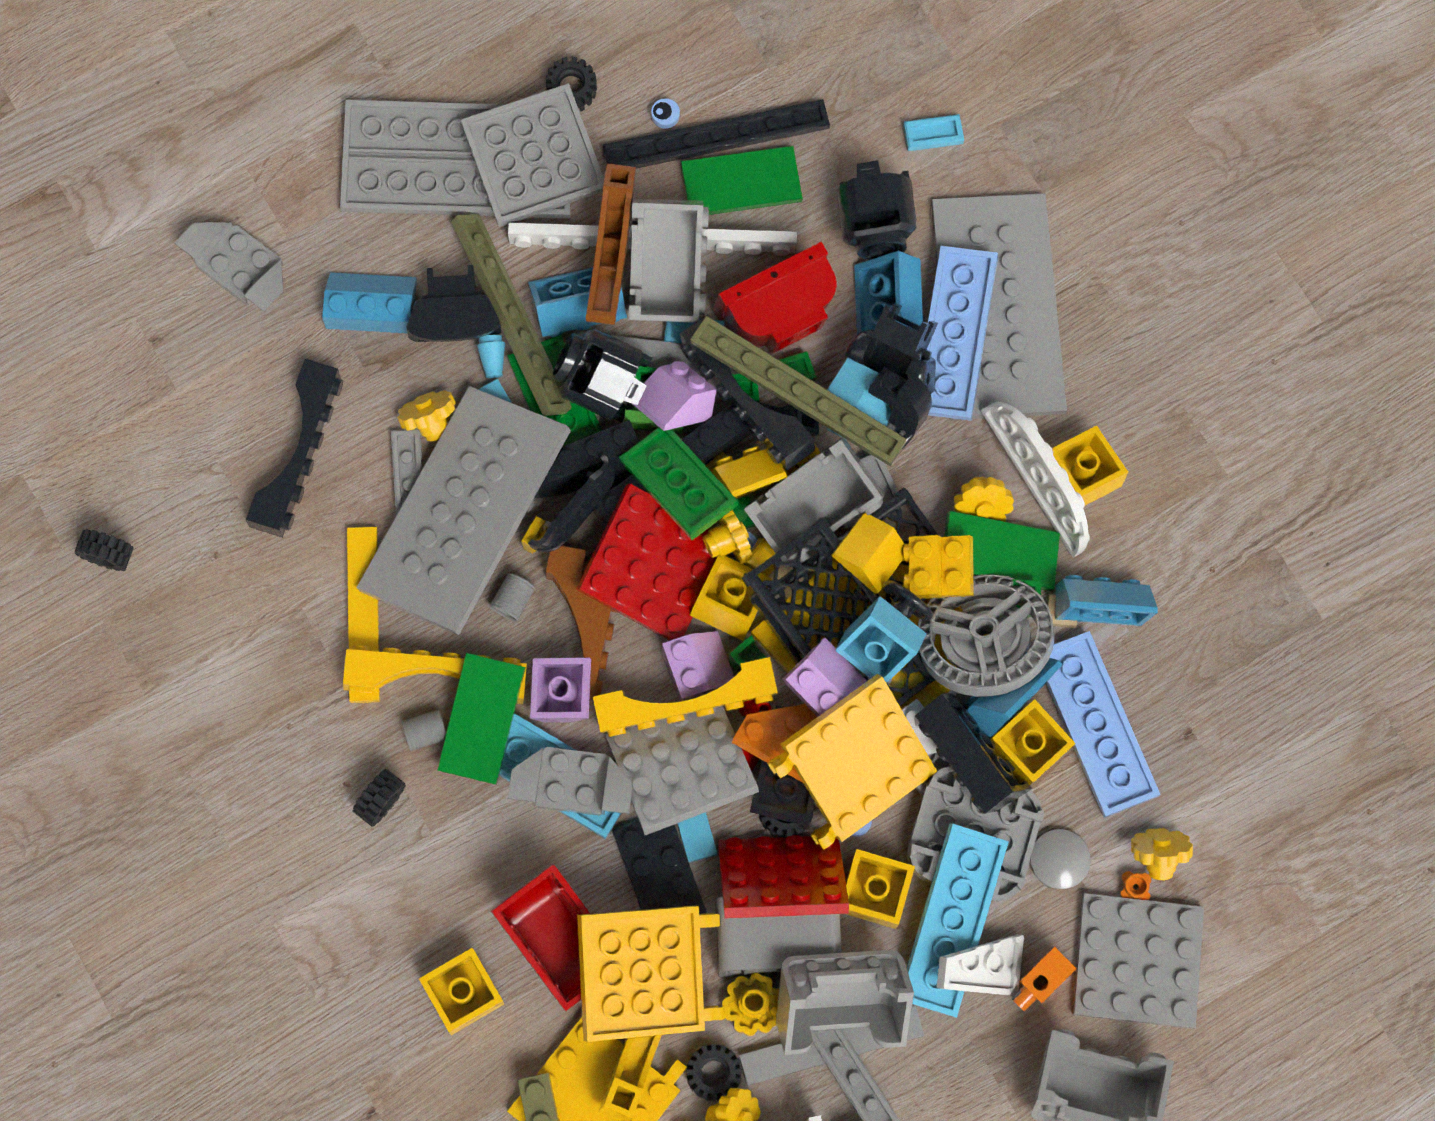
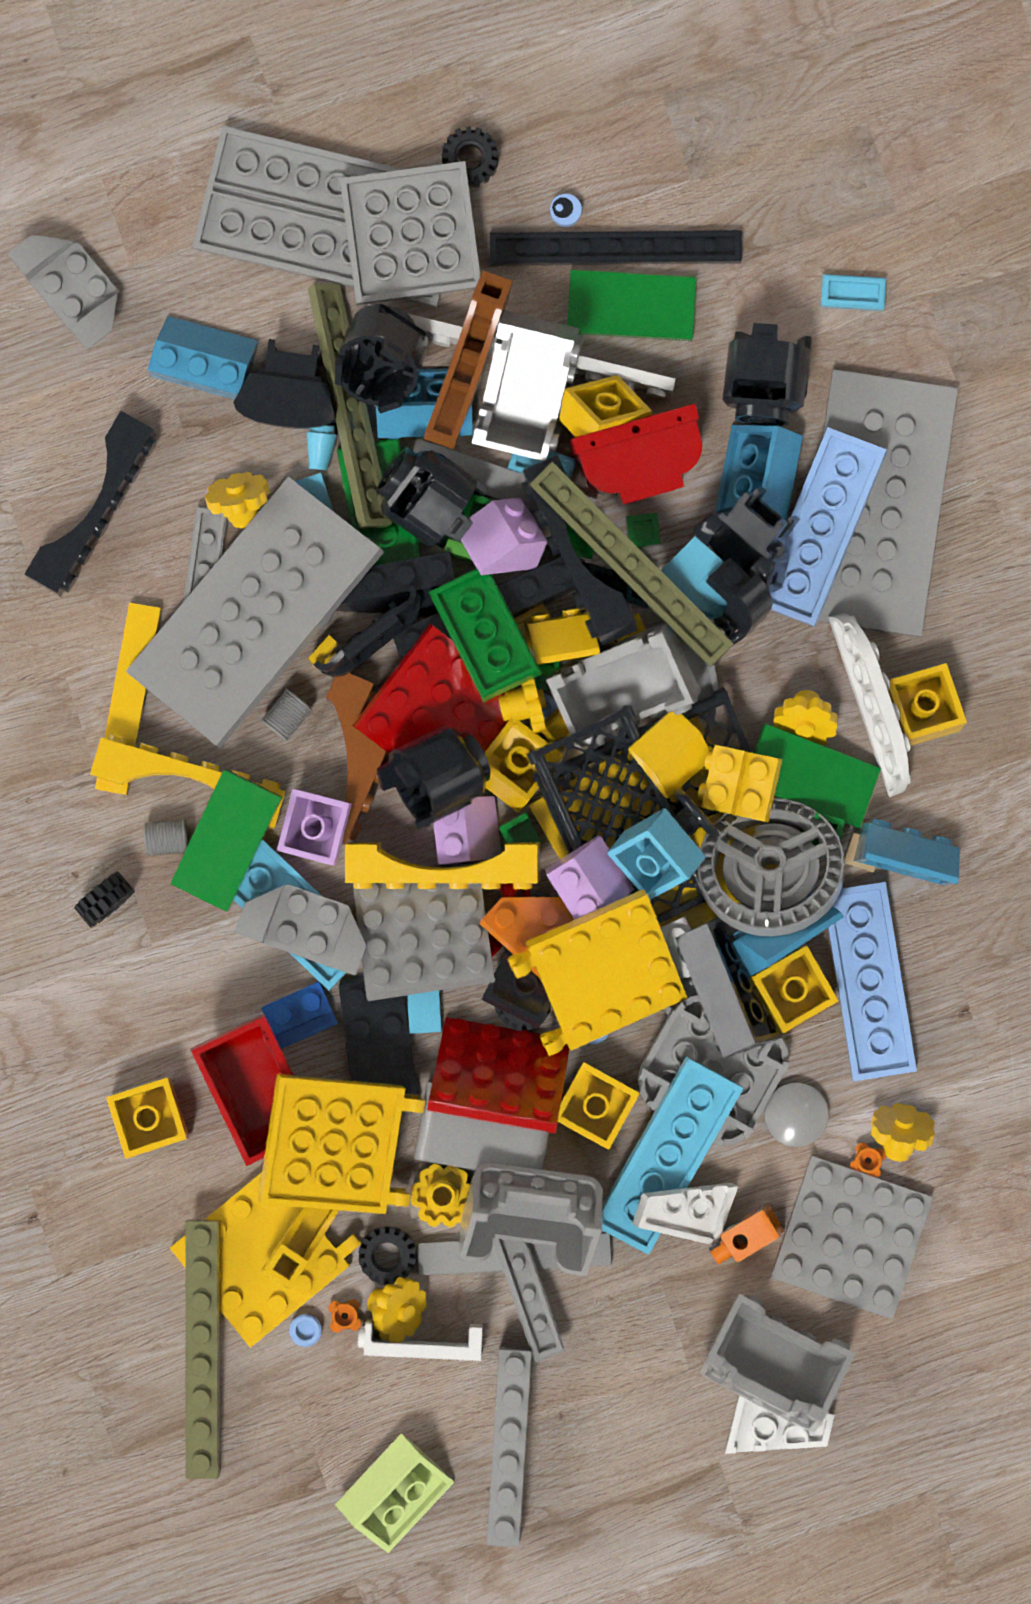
camera: 20 degrees right, 10 degrees up
(532, 274) = (381, 356): none -> black piece
(586, 865) = (300, 1015): none -> blue plate
(662, 613) = (436, 774): none -> black piece
(734, 264) = (600, 406): none -> yellow slope

